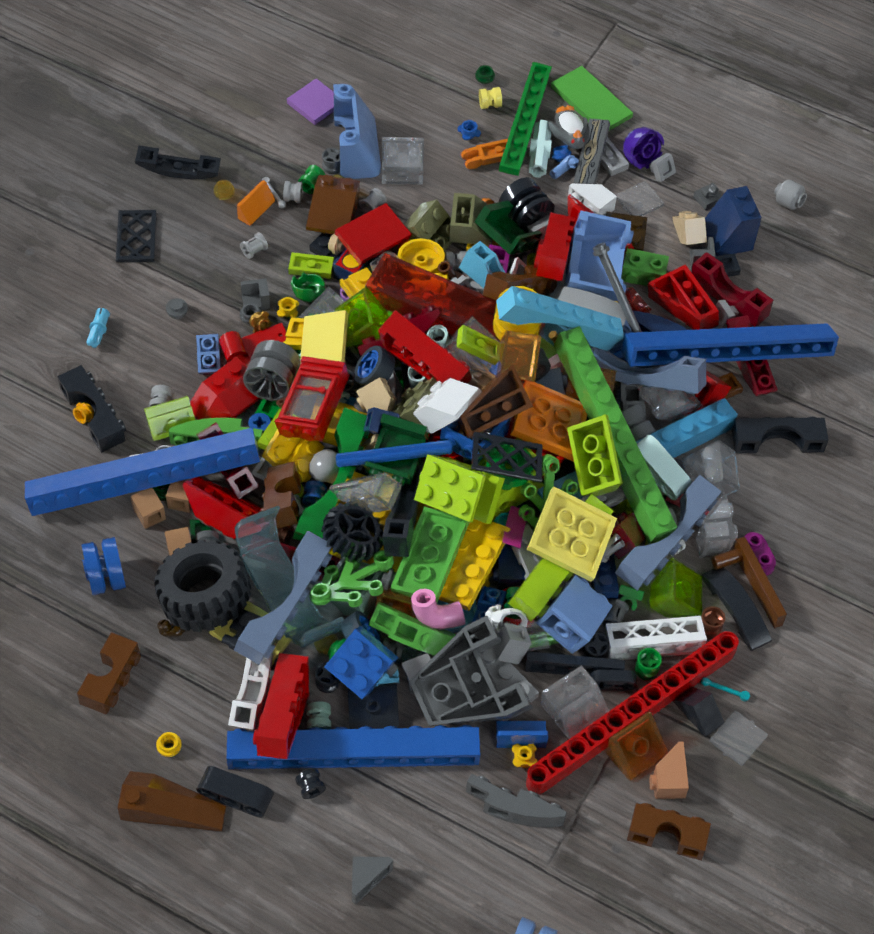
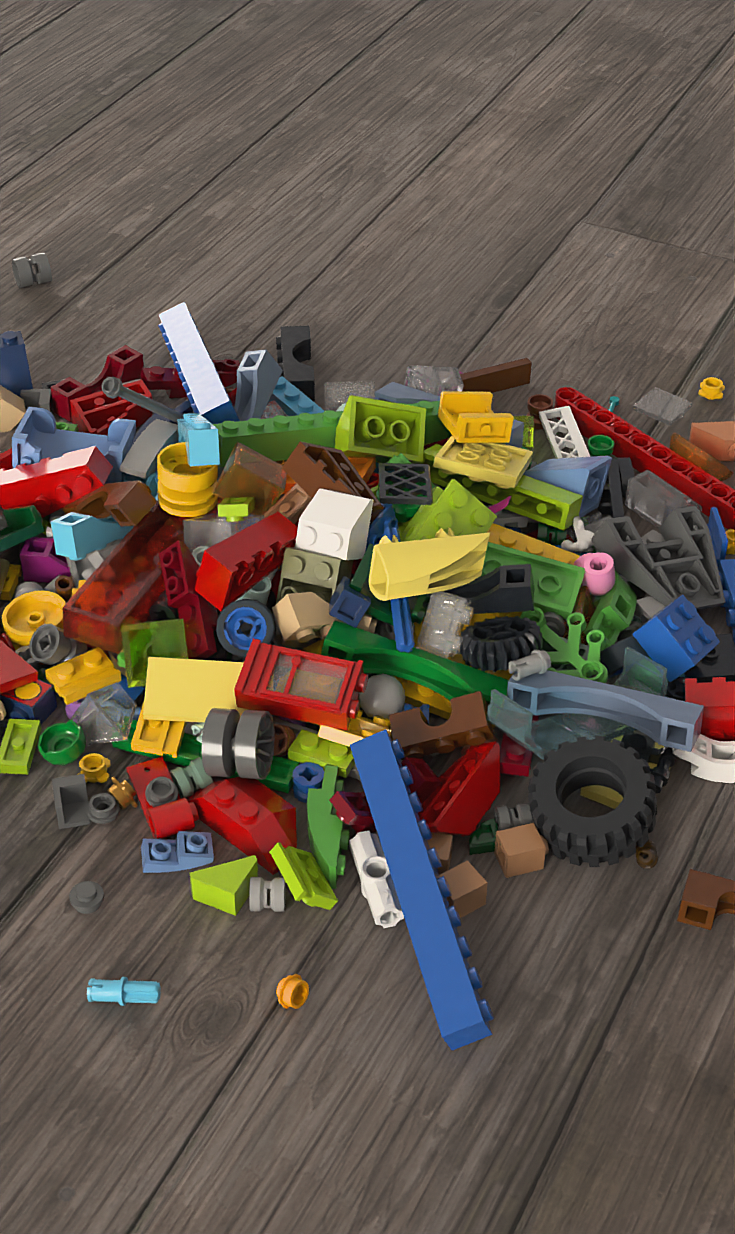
camera: 90 degrees left, 15 degrees down
(103, 566) = (579, 916): blue wheel -> none
(104, 428) = (320, 957): black arch -> none
(170, 375) = (225, 884): none -> lime slope
(252, 339) = (161, 791): none -> dark grey plate
(320, 546) = (536, 662): none -> light grey pin
(387, 458) = (426, 564): none -> light yellow piece
(627, 530) = (471, 418): none -> yellow panel
(700, 709) = (644, 420): black slope -> none
(739, 605) = (519, 392): black slope -> none
(767, 778) = (711, 388): none -> yellow plate

